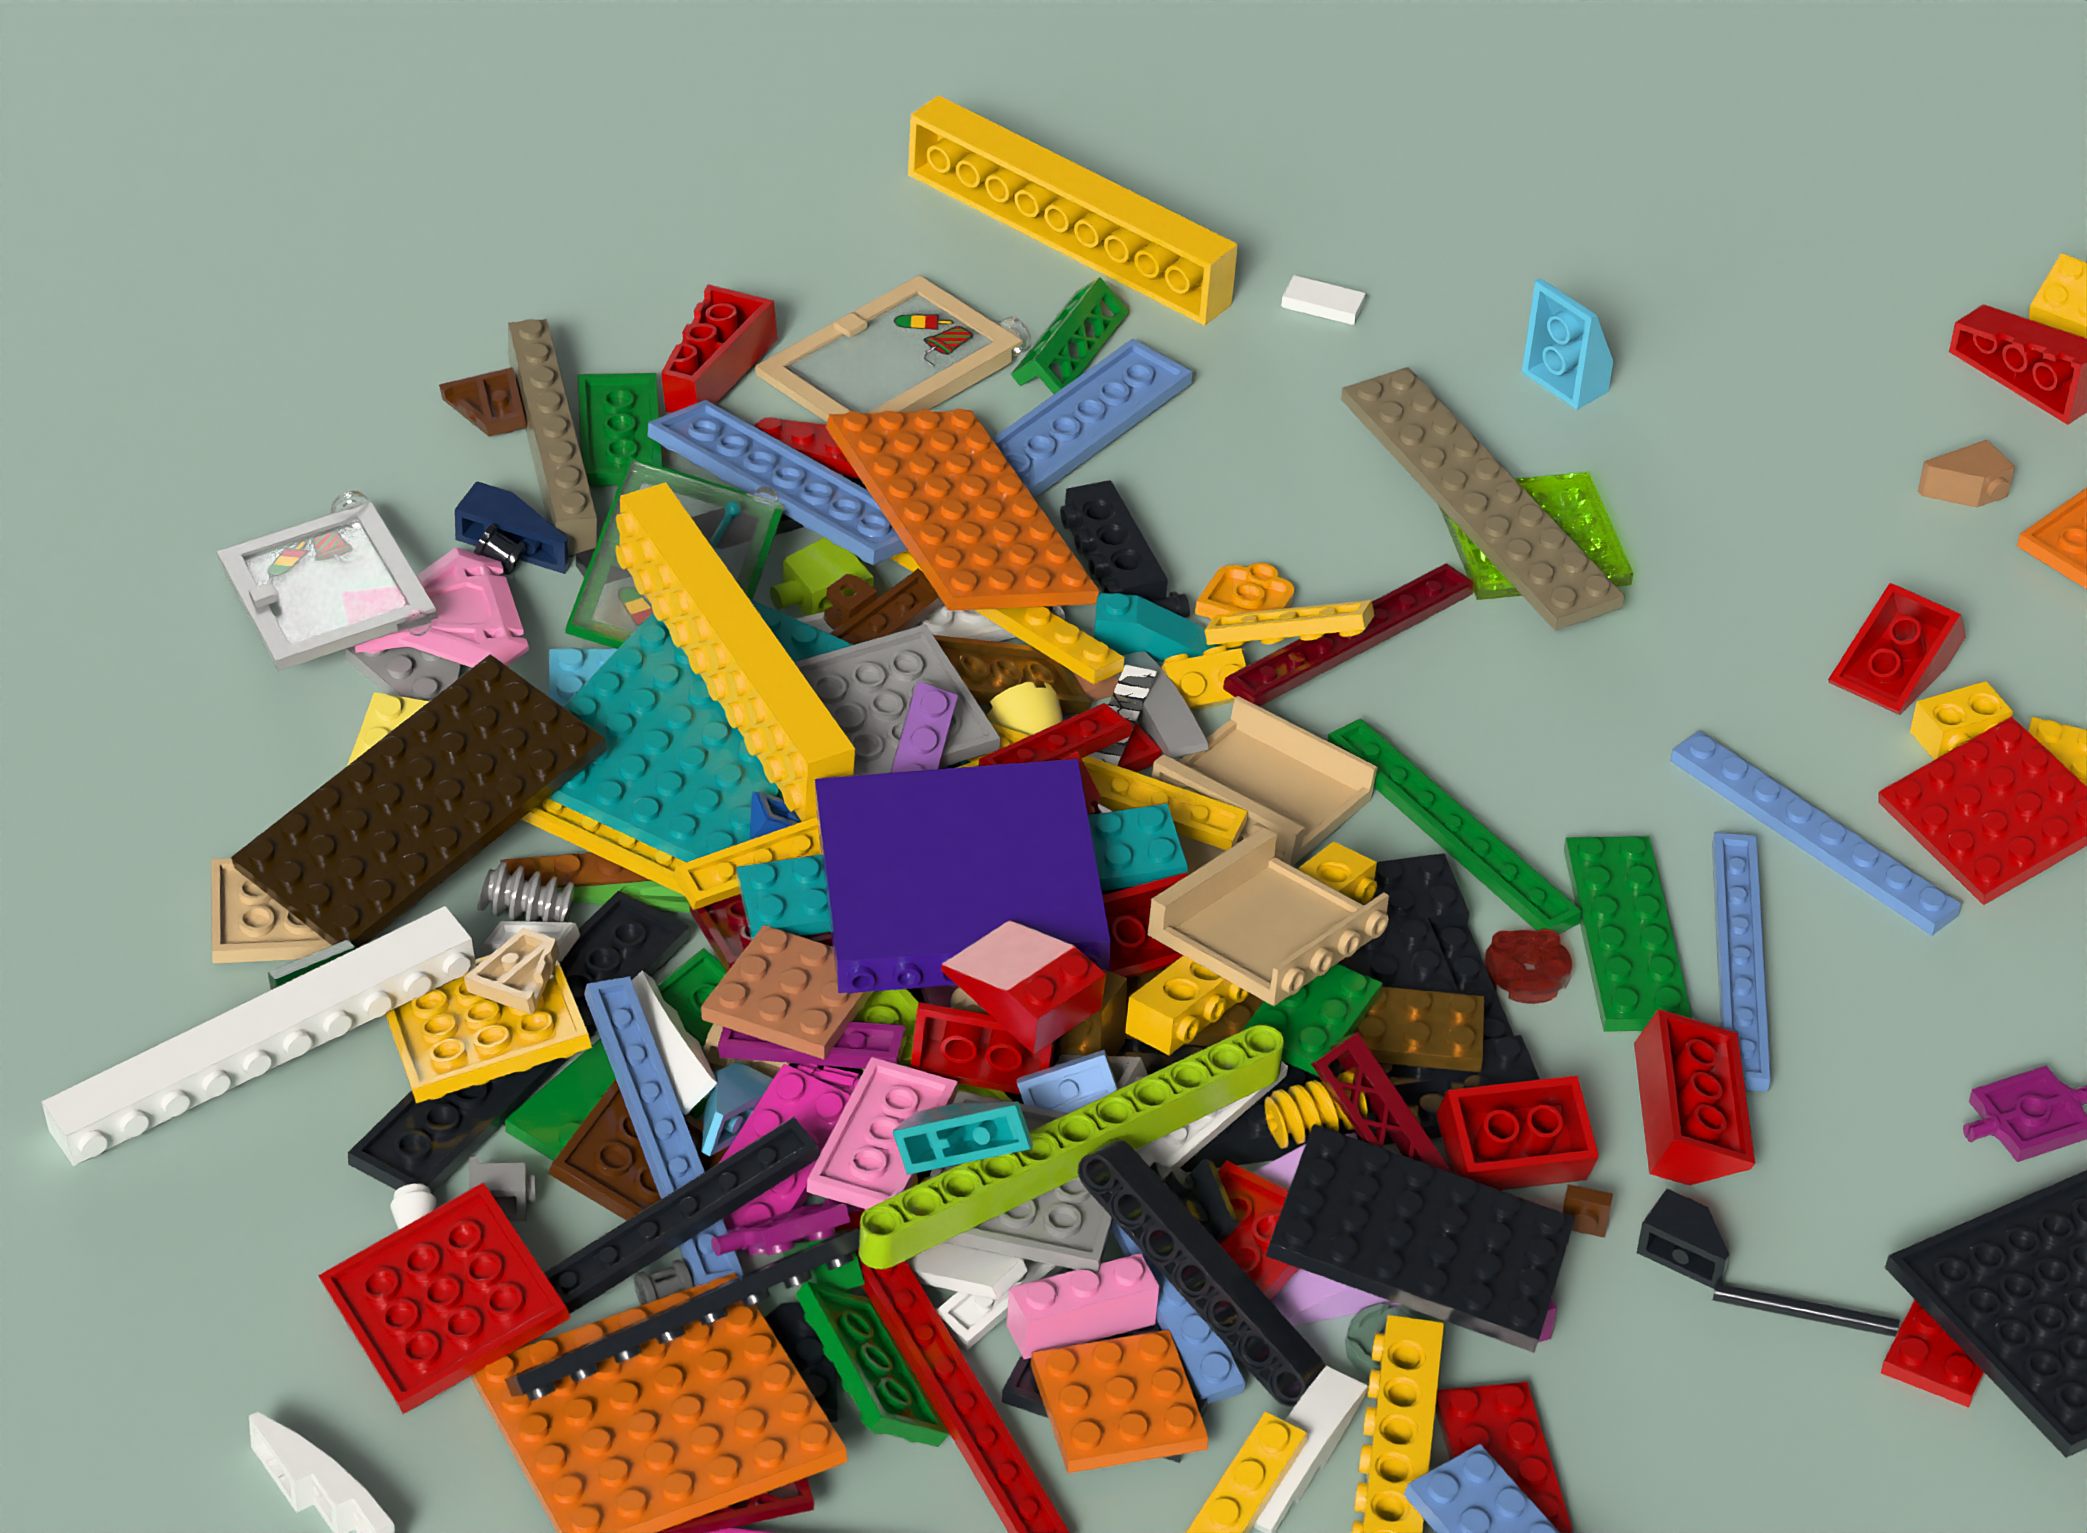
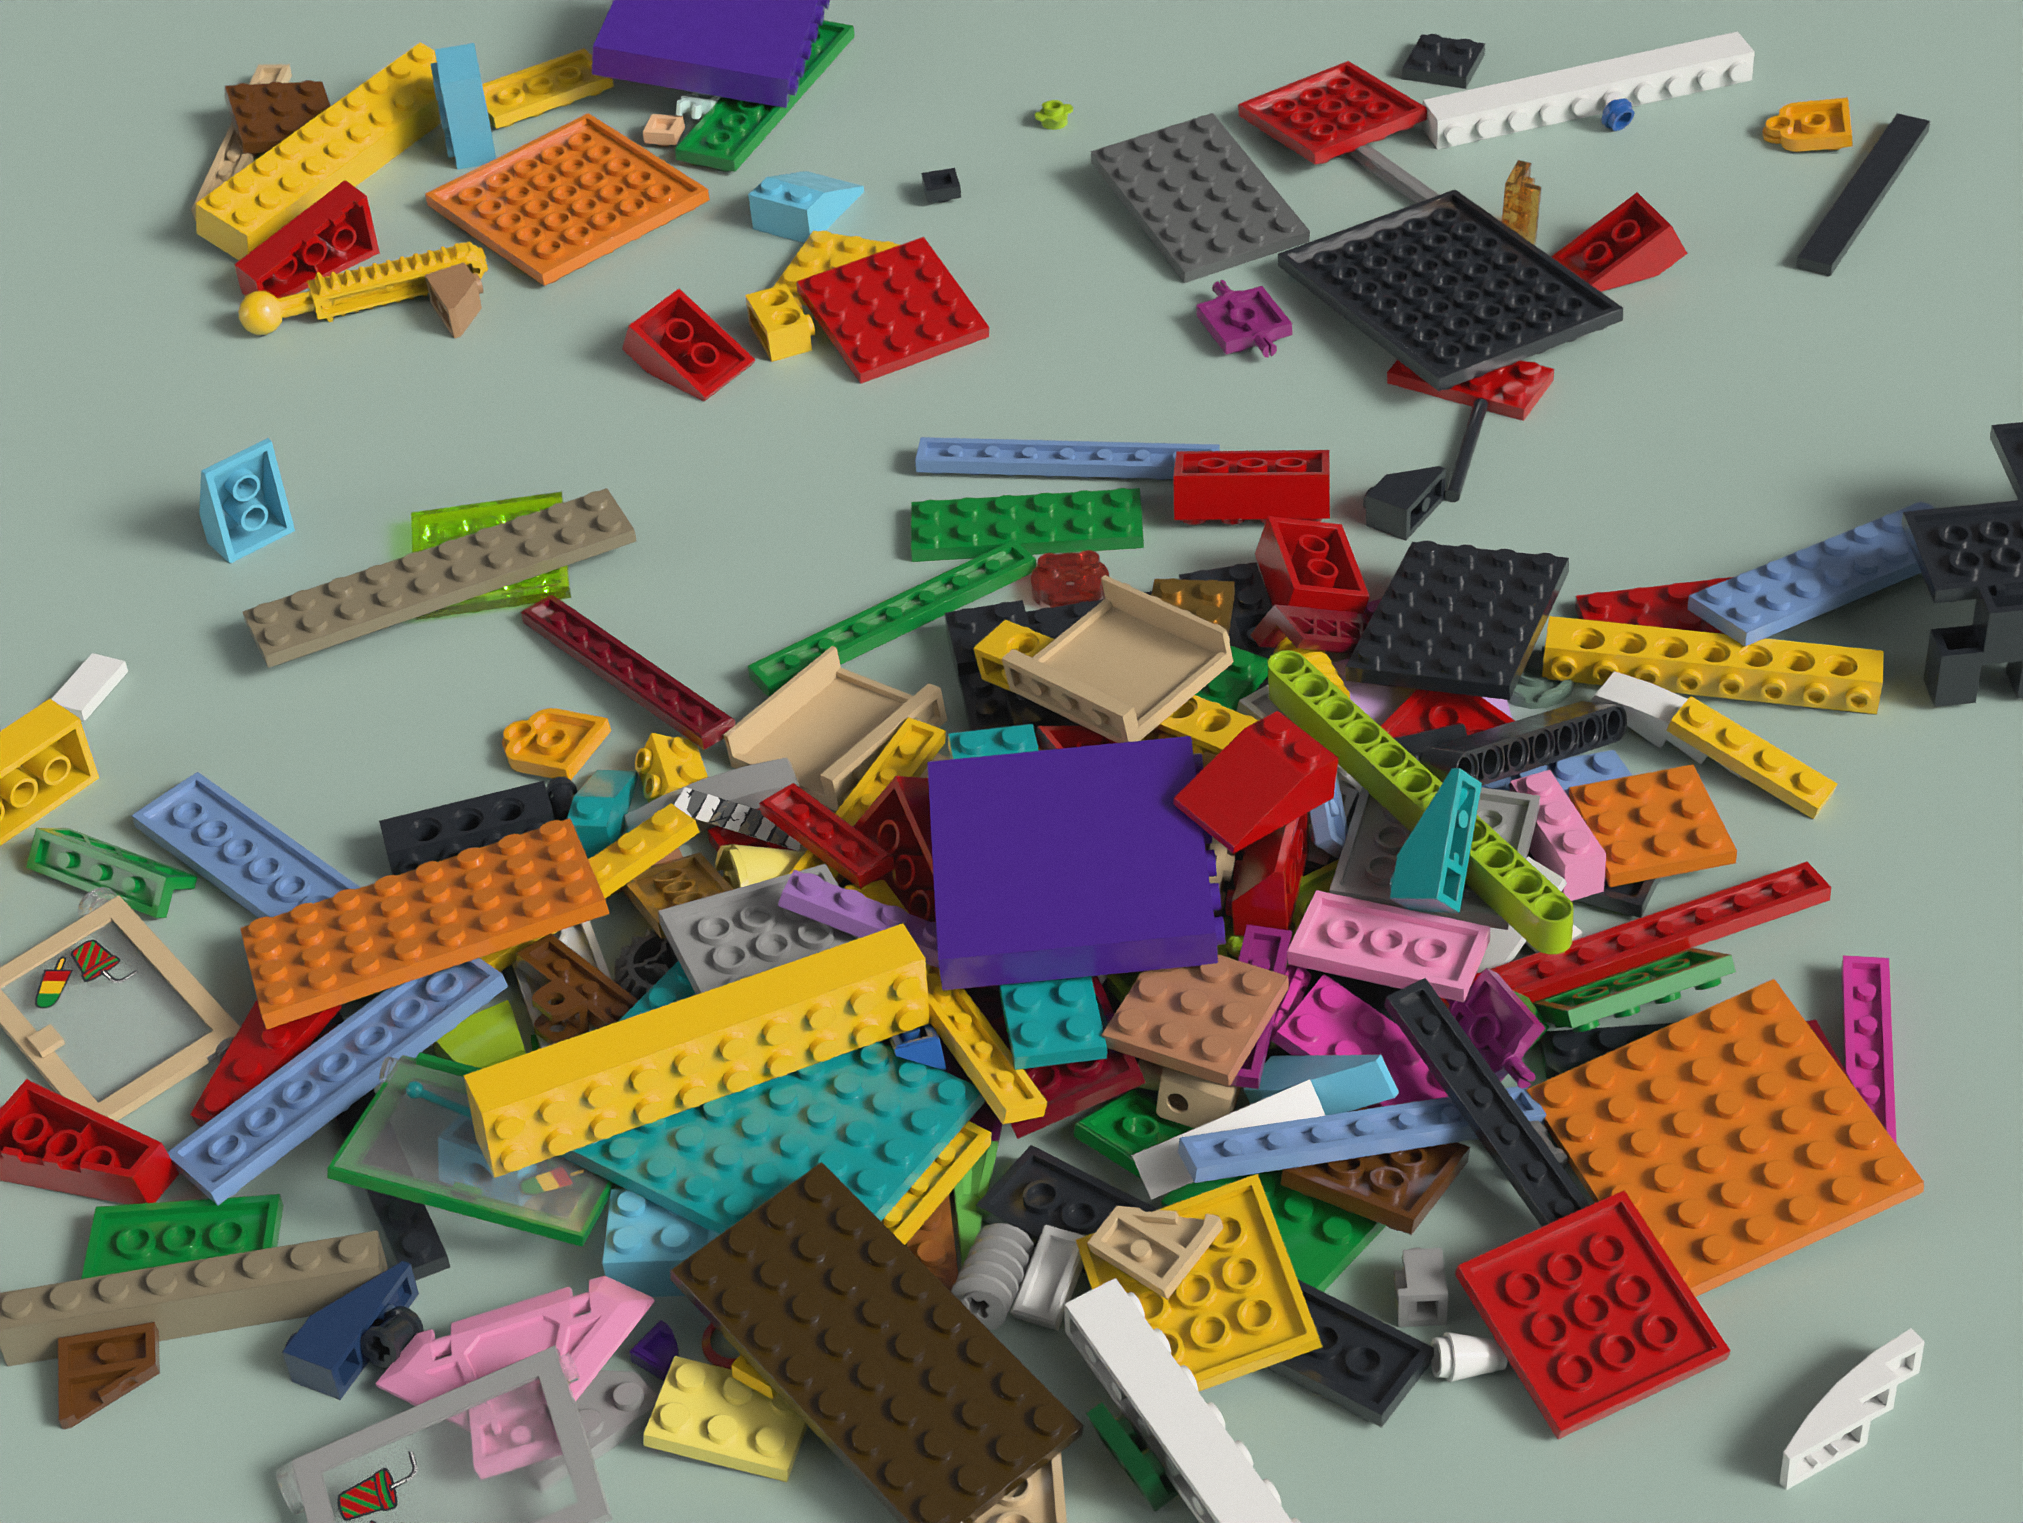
camera: 80 degrees left, 0 degrees up
(669, 1323) = (1628, 1105): black plate -> none
(1276, 624) = (626, 694): yellow plate -> none
(1589, 1208) = (1379, 553): reddish brown plate -> none
(1816, 833) = (899, 417): medium blue plate -> none
(1975, 407) = (357, 288): none -> yellow gear

